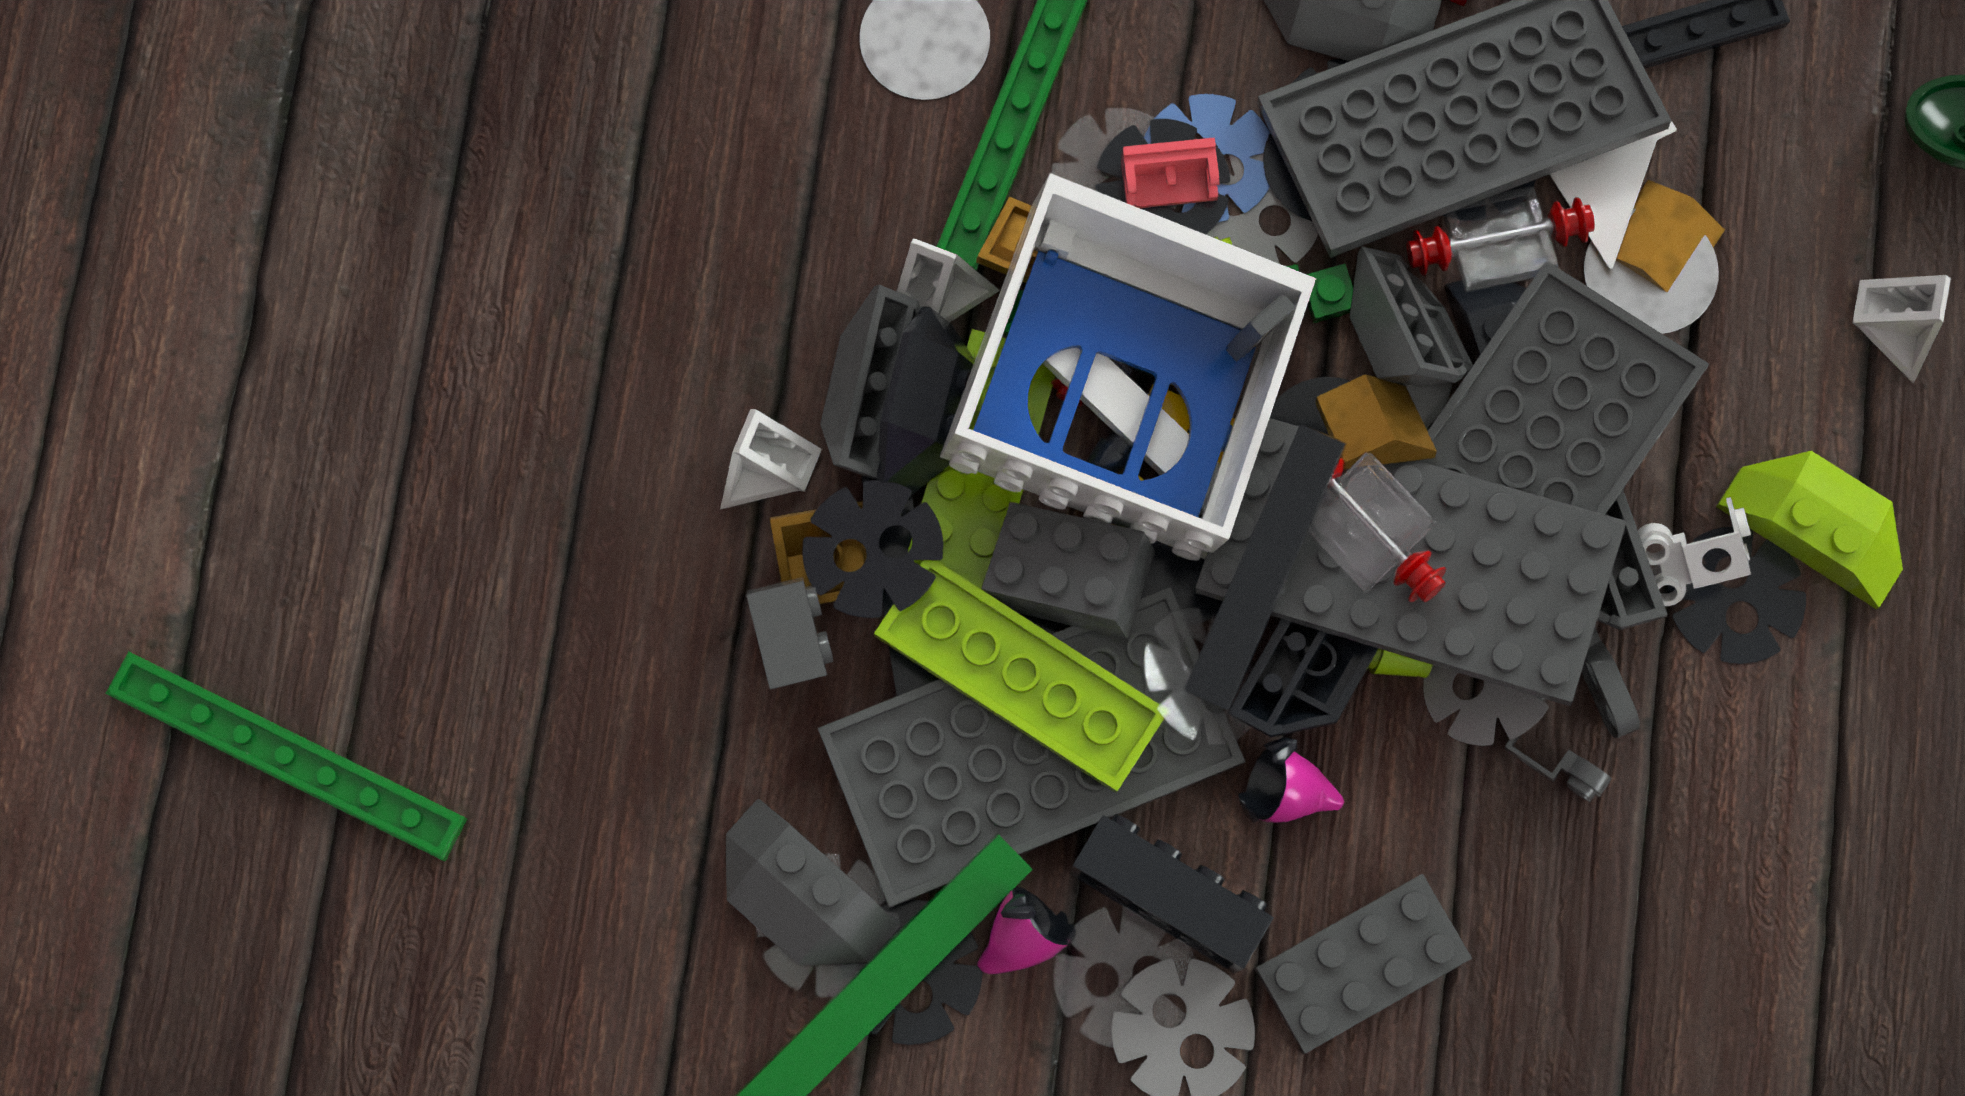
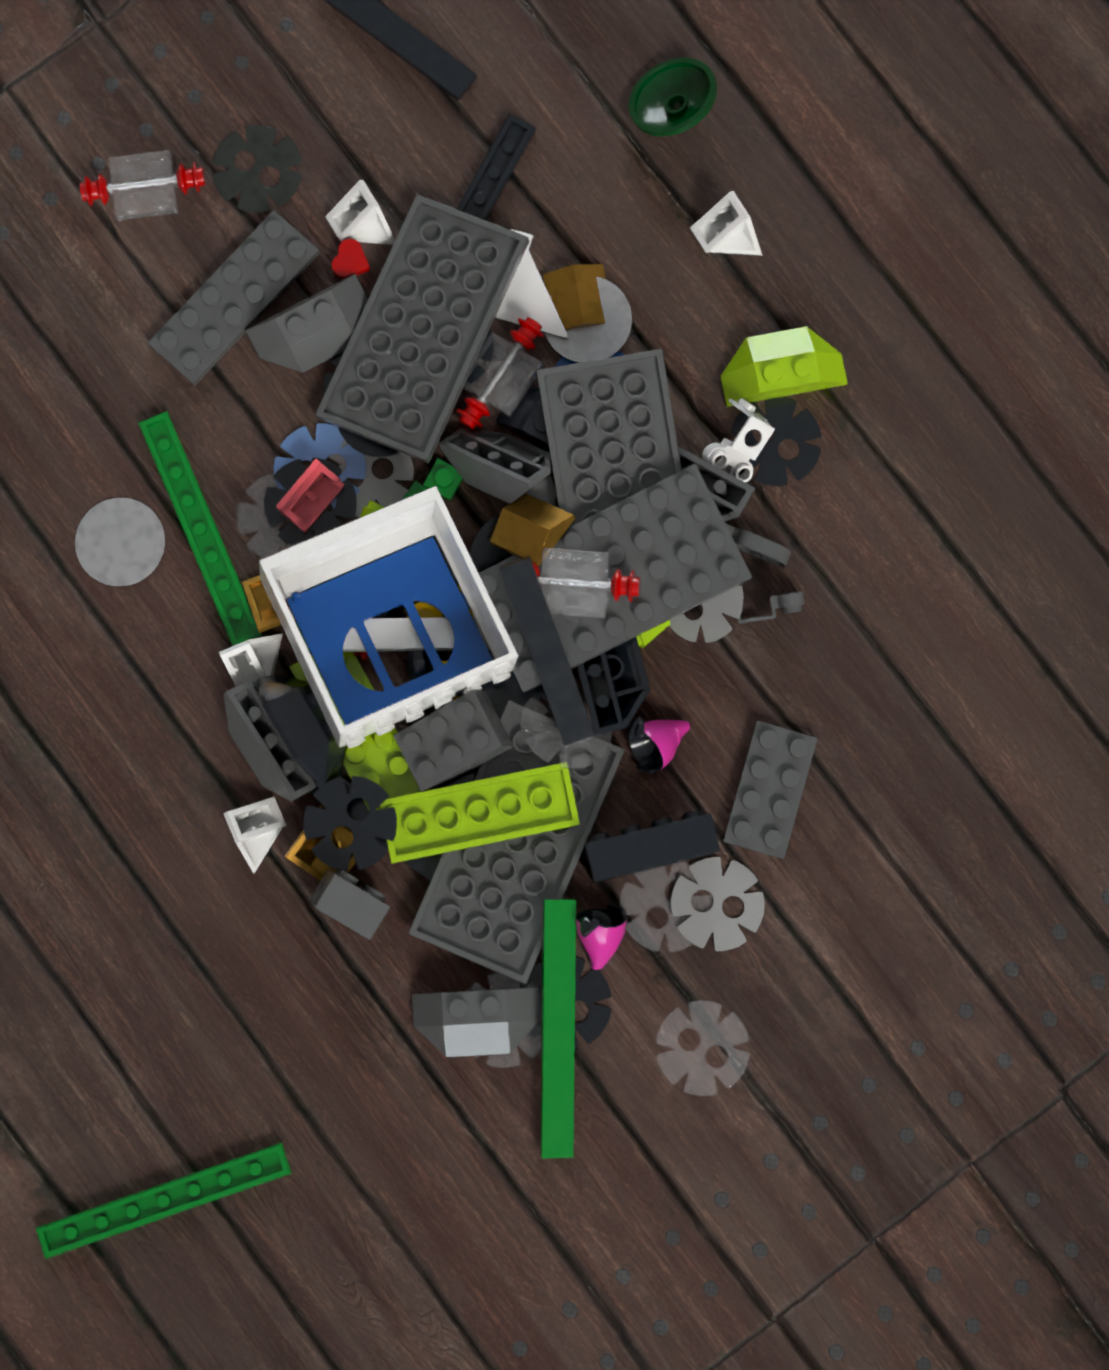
camera: 45 degrees left, 5 degrees up
(1260, 327) = (431, 534): dark grey tile -> none

